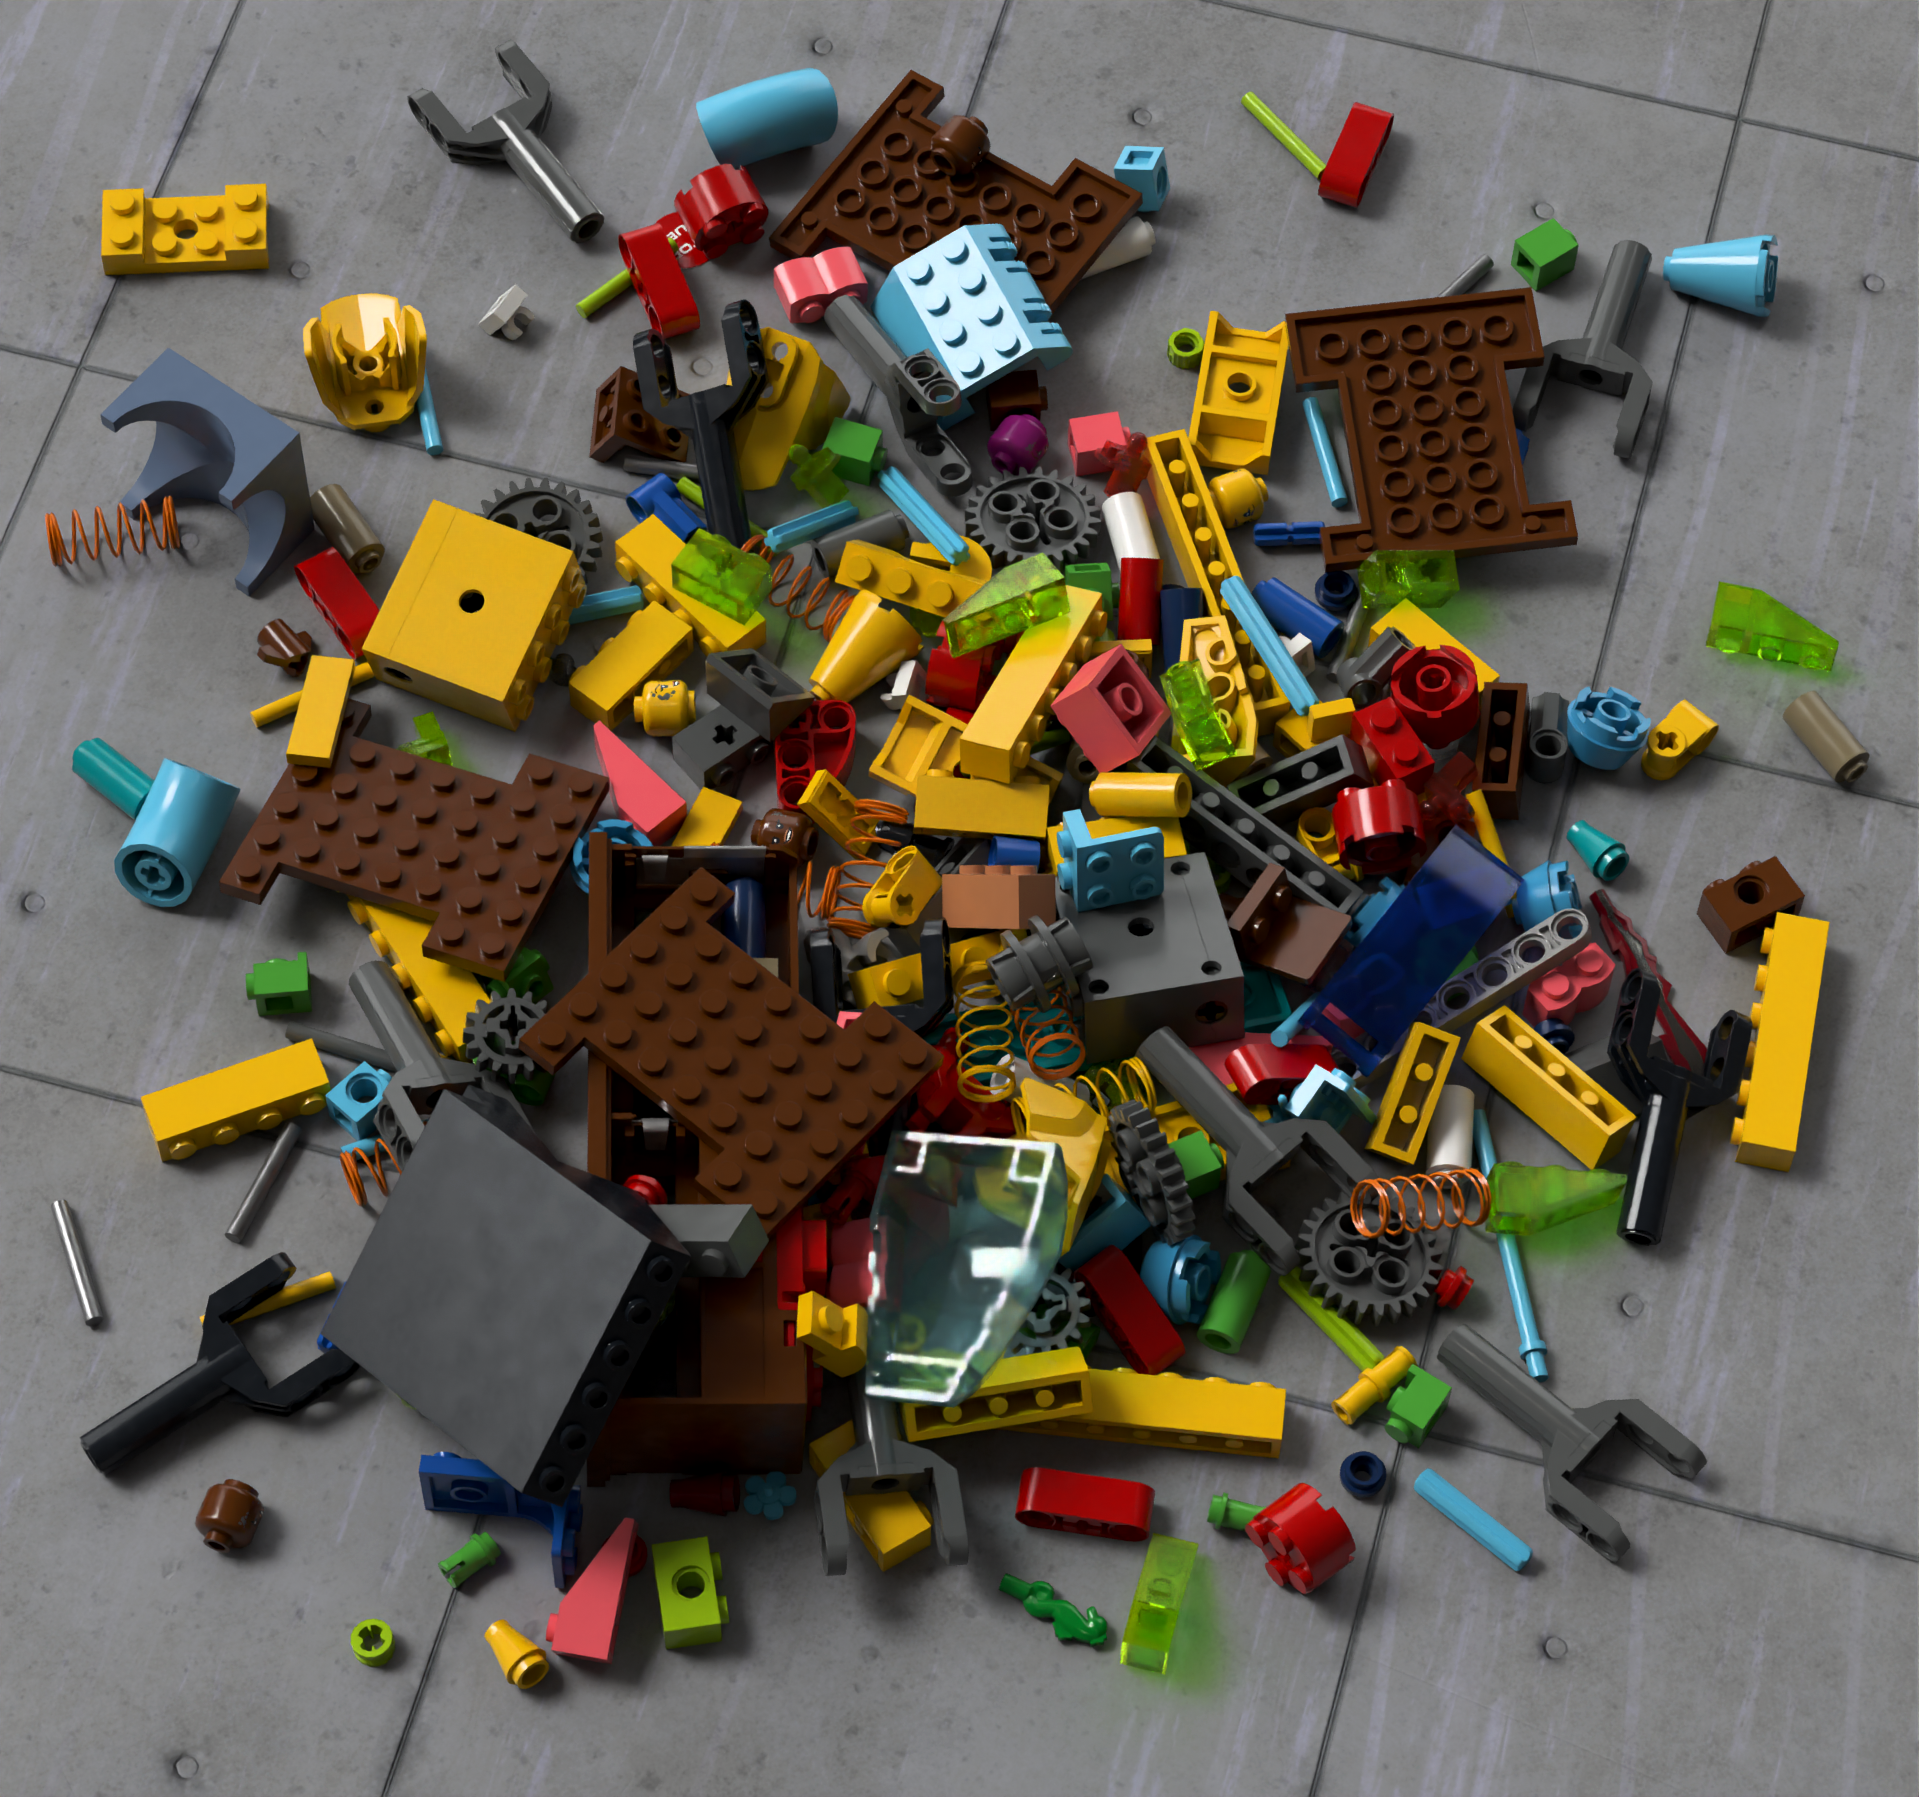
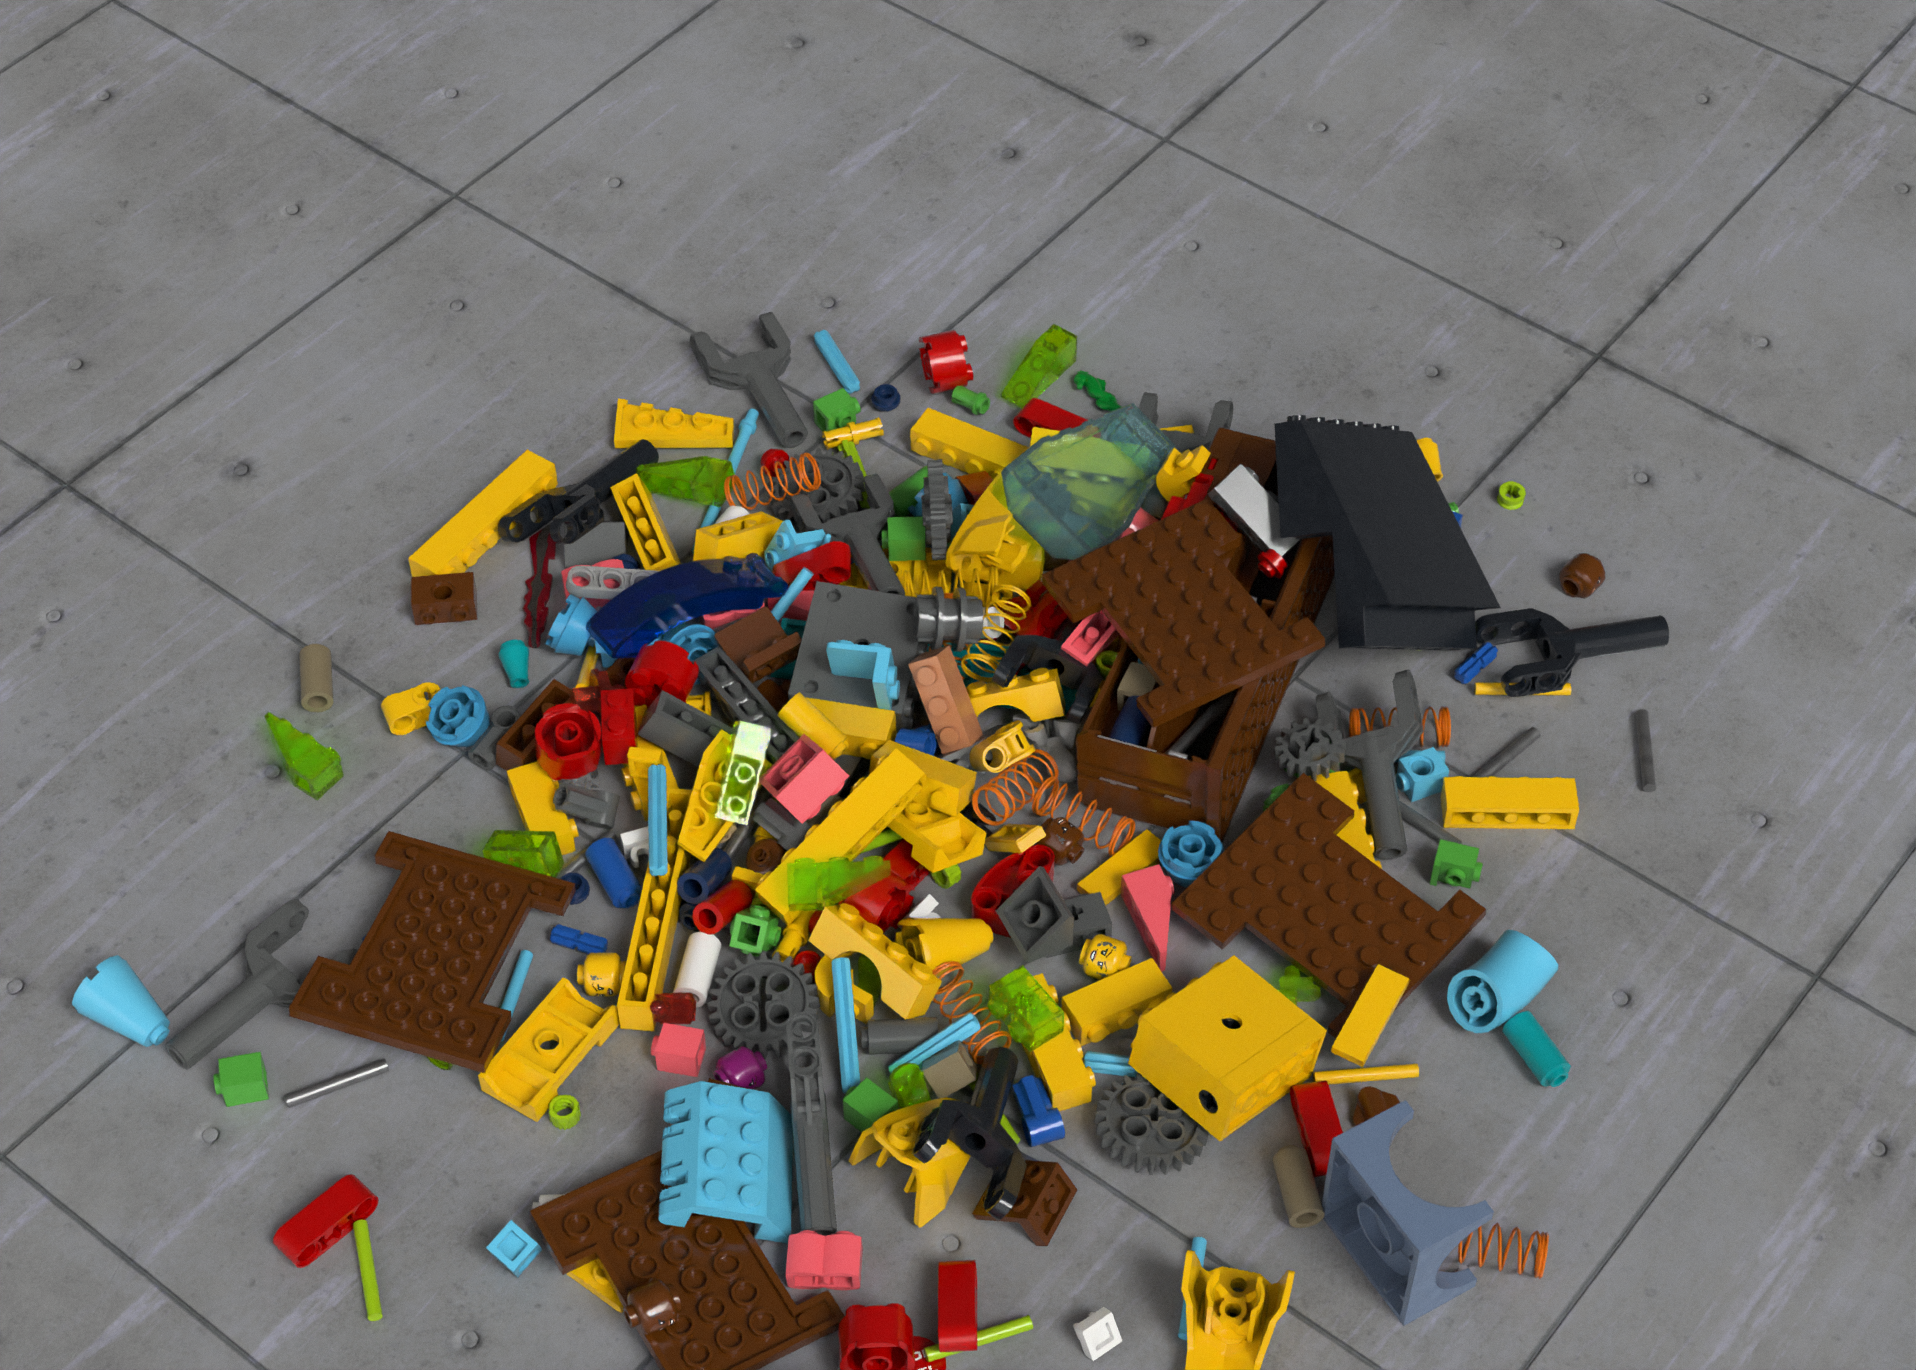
camera: 155 degrees left, 10 degrees down
(780, 504) = (949, 1070): none -> dark tan brick
(1644, 1294) = (670, 427): none -> yellow wing

